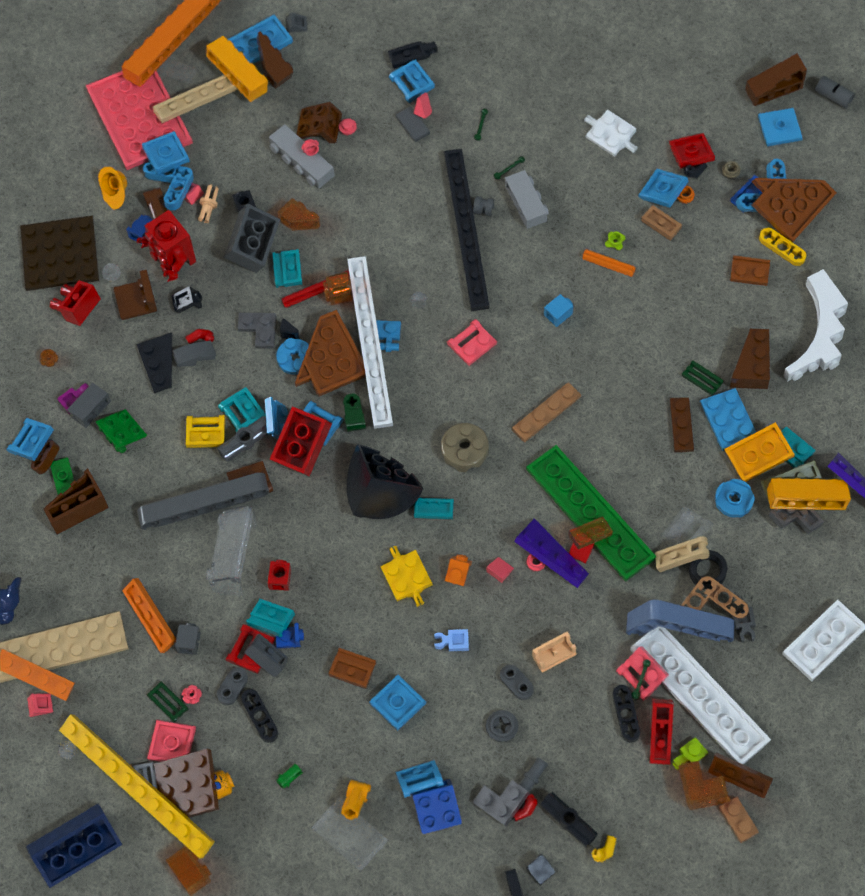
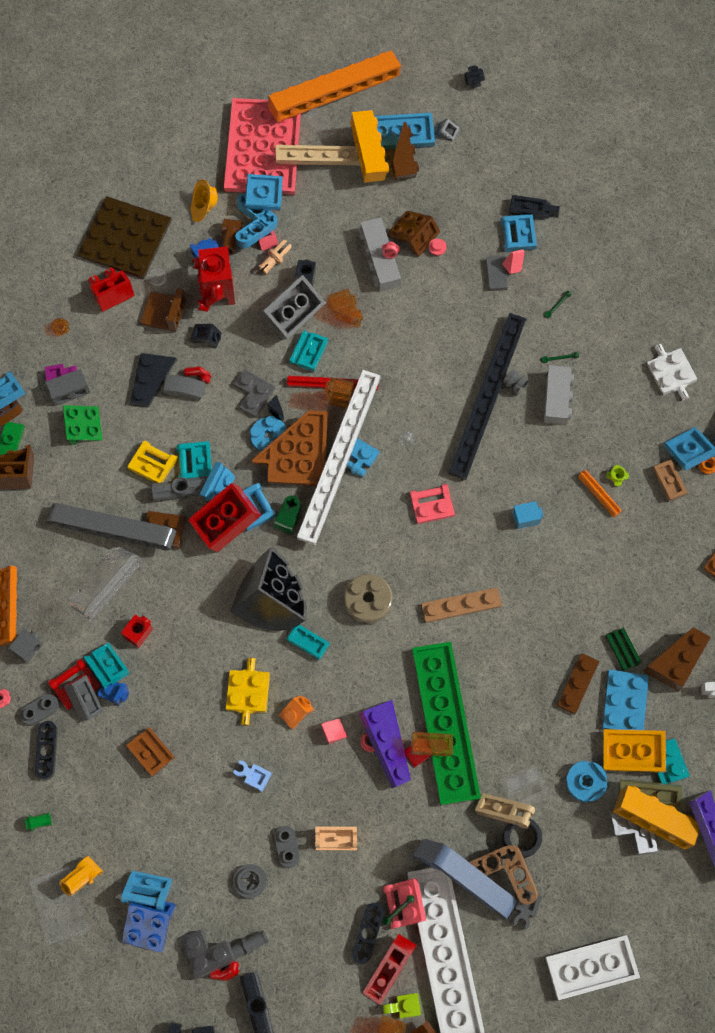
camera: 25 degrees right, 5 degrees up
(397, 702) = (171, 806): dark azure plate -> none

